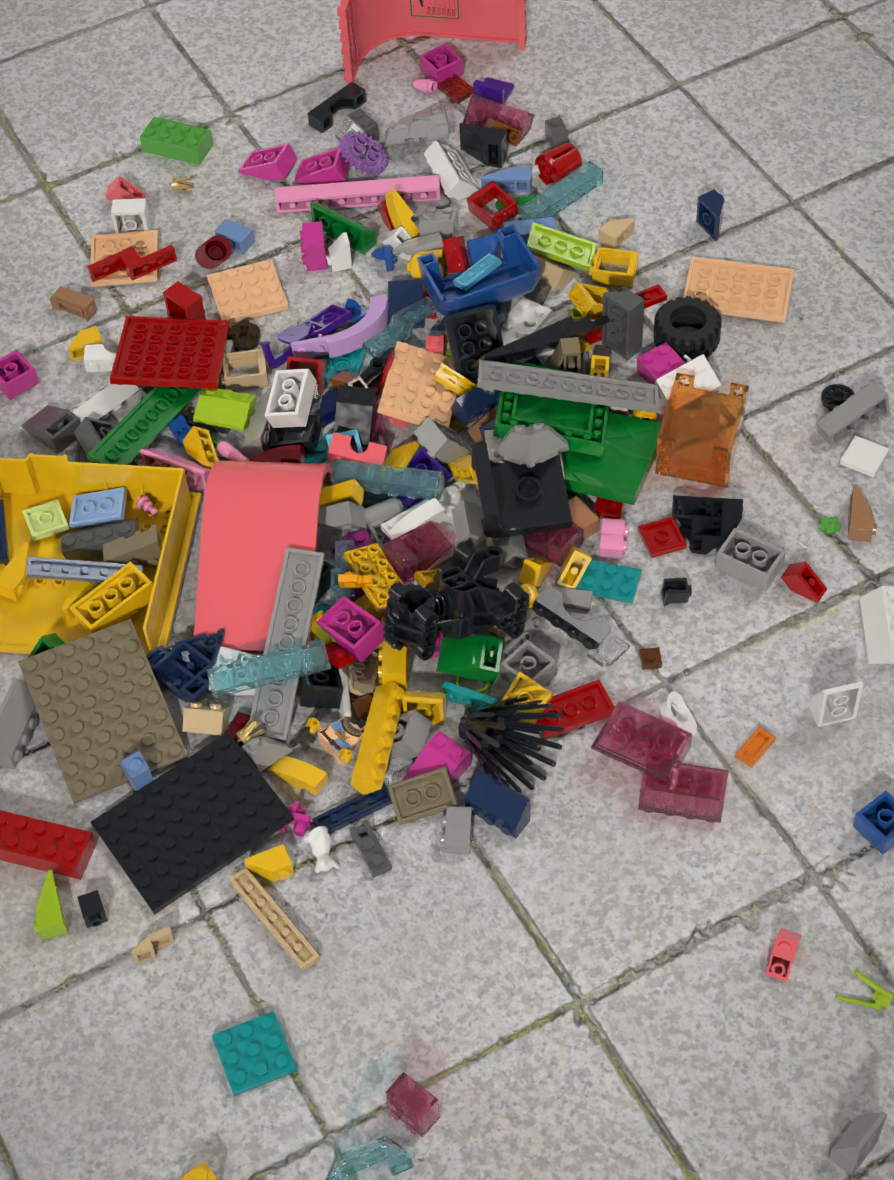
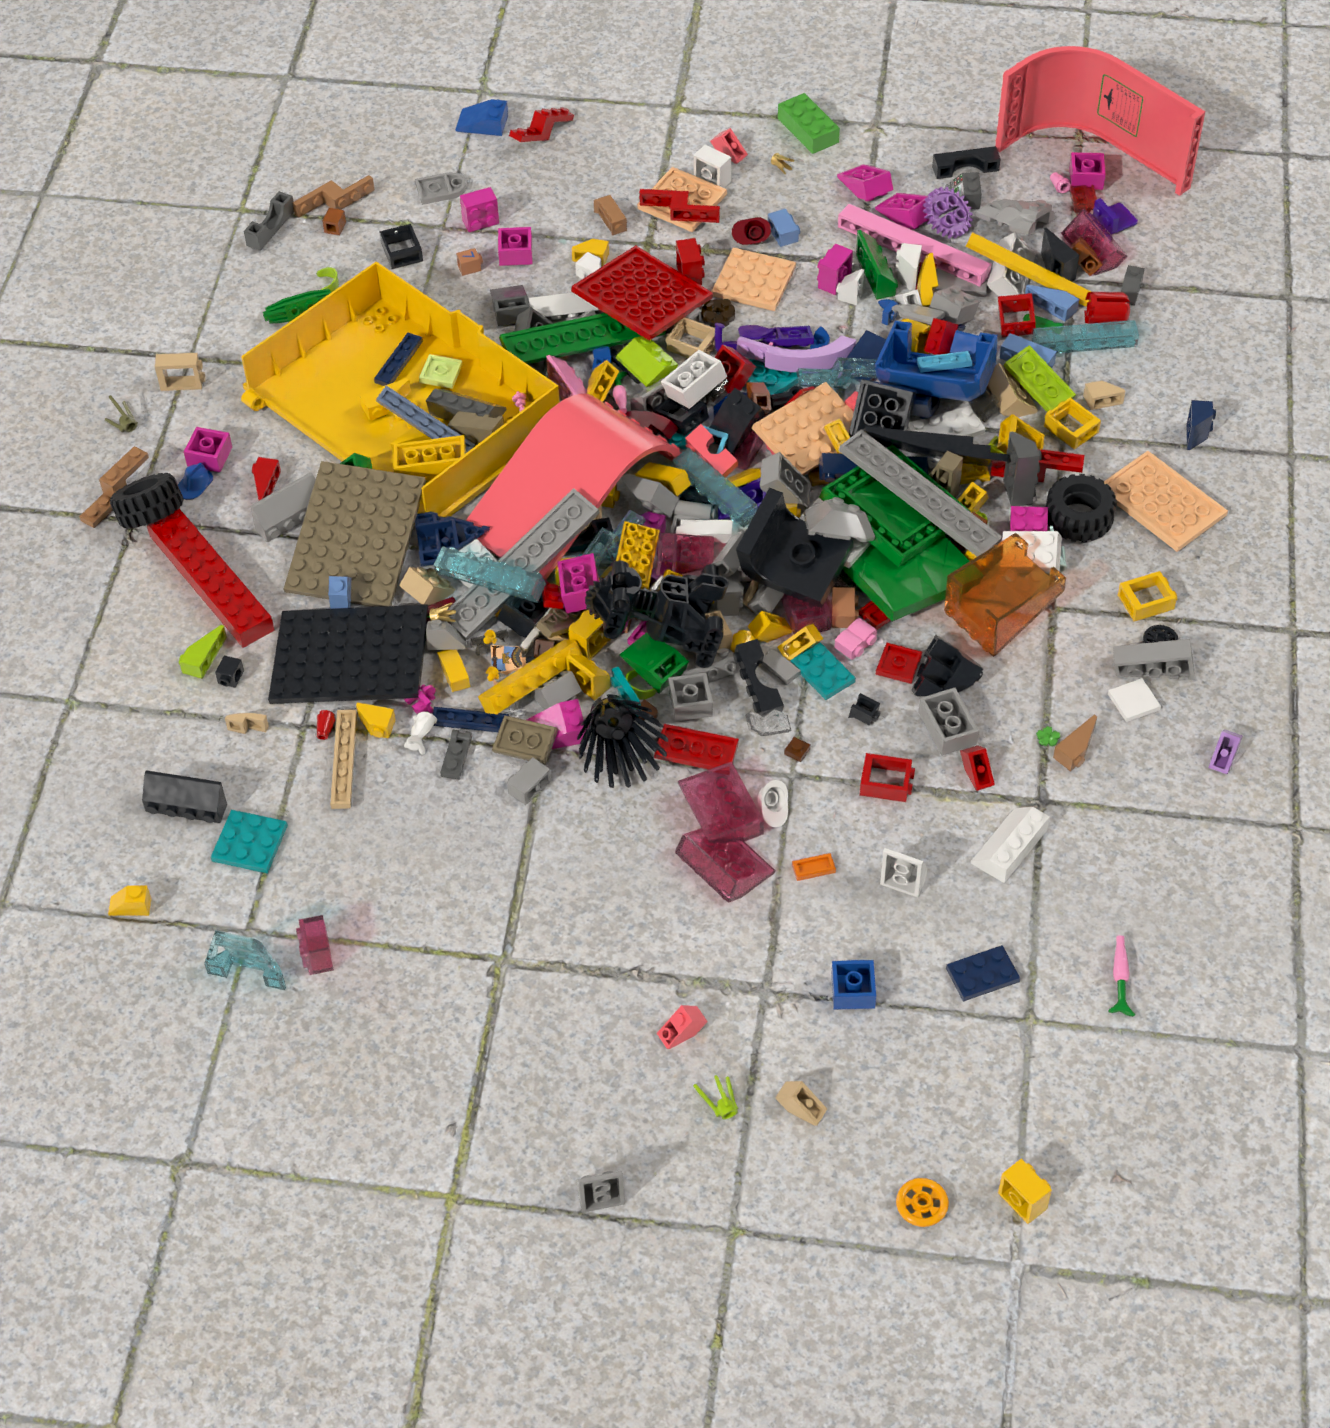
camera: 35 degrees right, 0 degrees up
(98, 508) = (484, 383): light blue plate -> none
(159, 1054) = (183, 797): none -> black slope
(226, 898) = (325, 722): none -> red cone
(352, 580) = (607, 545): light orange plate -> none
(373, 211) = (908, 264): none -> white slope
(469, 163) = (1025, 267): none -> yellow tile
(498, 804) = (571, 781): dark blue slope -> none
(526, 687) = (667, 712): yellow plate -> none
(730, 648) = (886, 791): none -> red window
(799, 384) = (1152, 608): none -> yellow window

